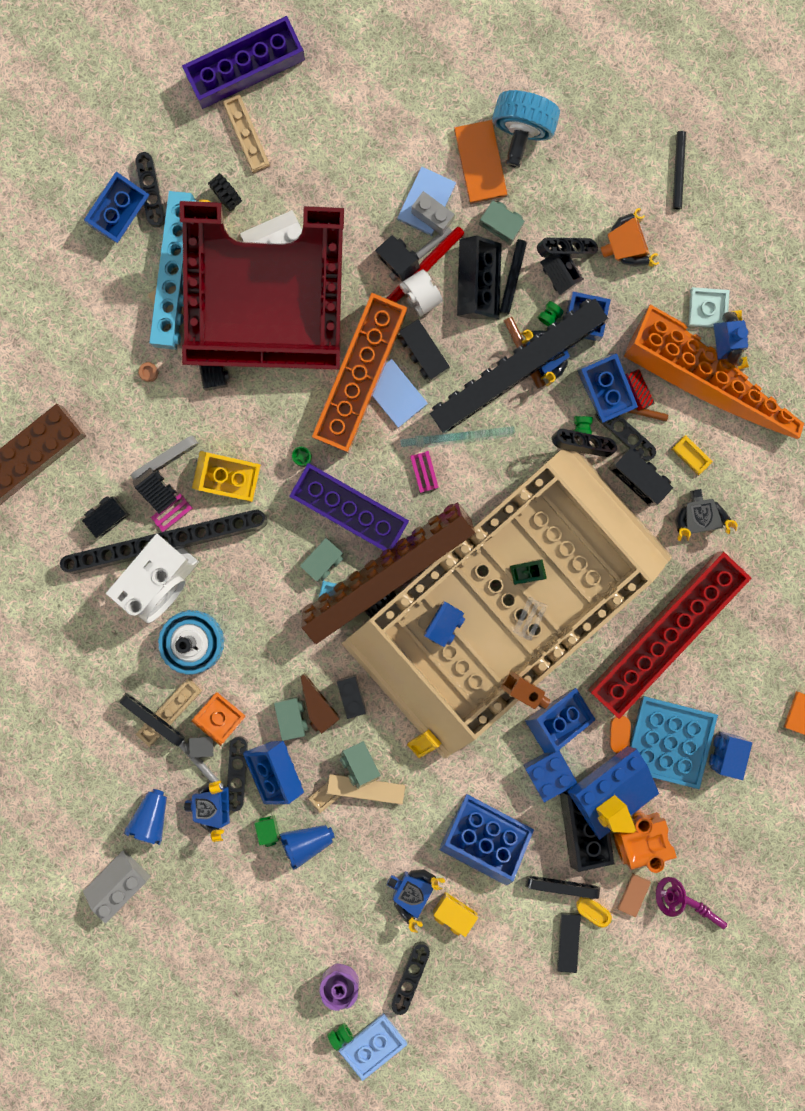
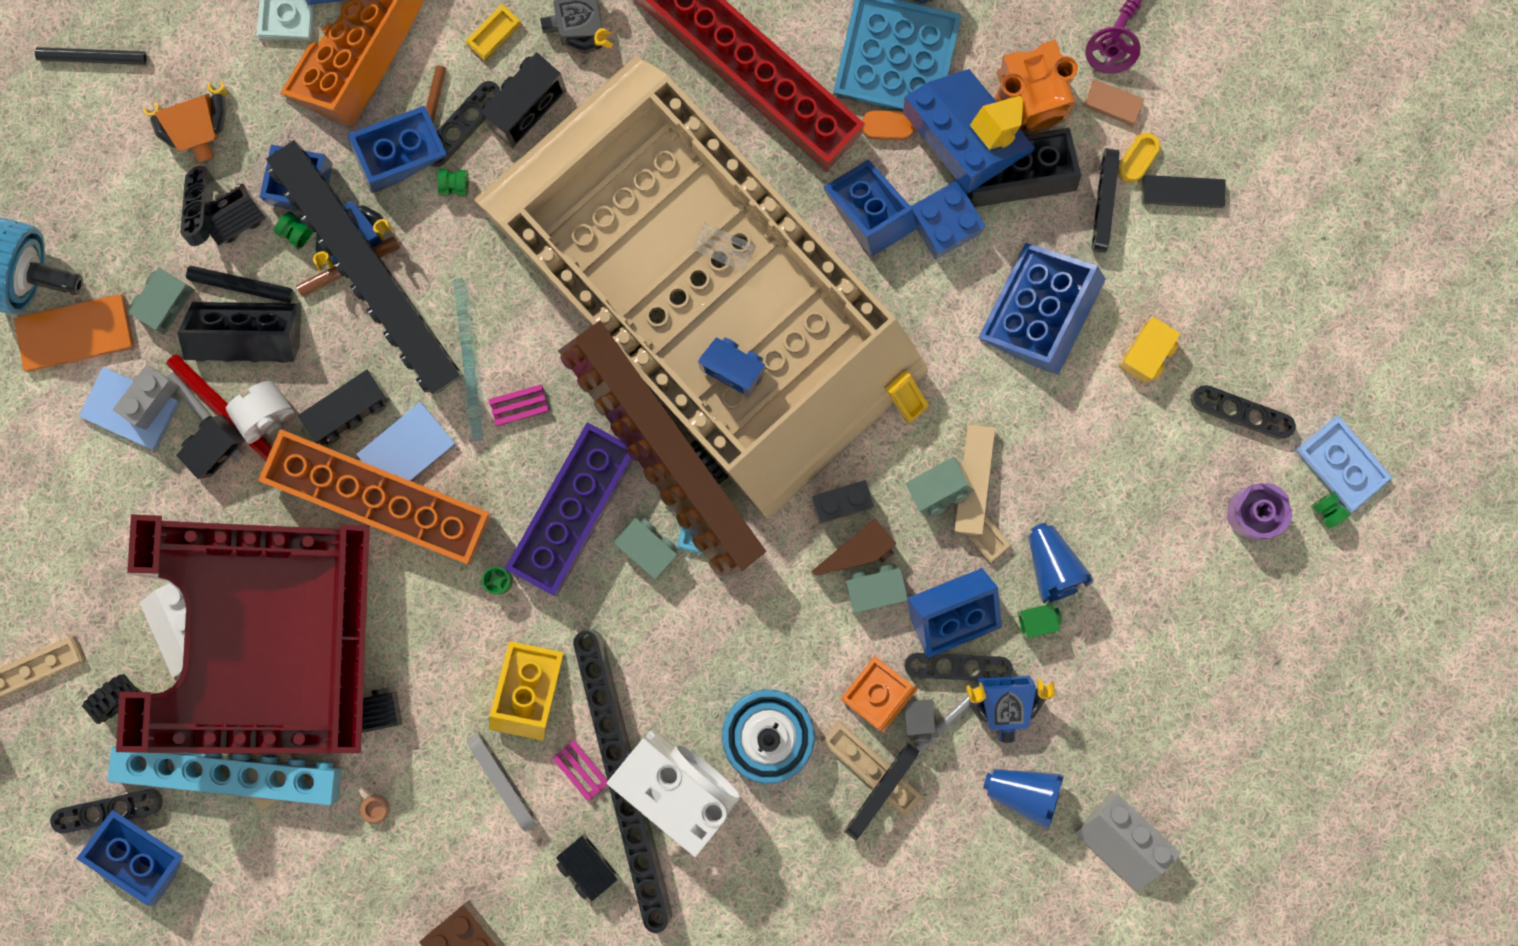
camera: 95 degrees left, 5 degrees down
(154, 490) = (547, 793): black brick -> none
(412, 894) = (1122, 410): torso -> none
(525, 691) = (823, 247): dark orange torso -> none
(528, 571) = (656, 249): dark green slope -> none
(565, 440) = (470, 201): black beam -> none
(639, 389) = (401, 104): red tile -> none

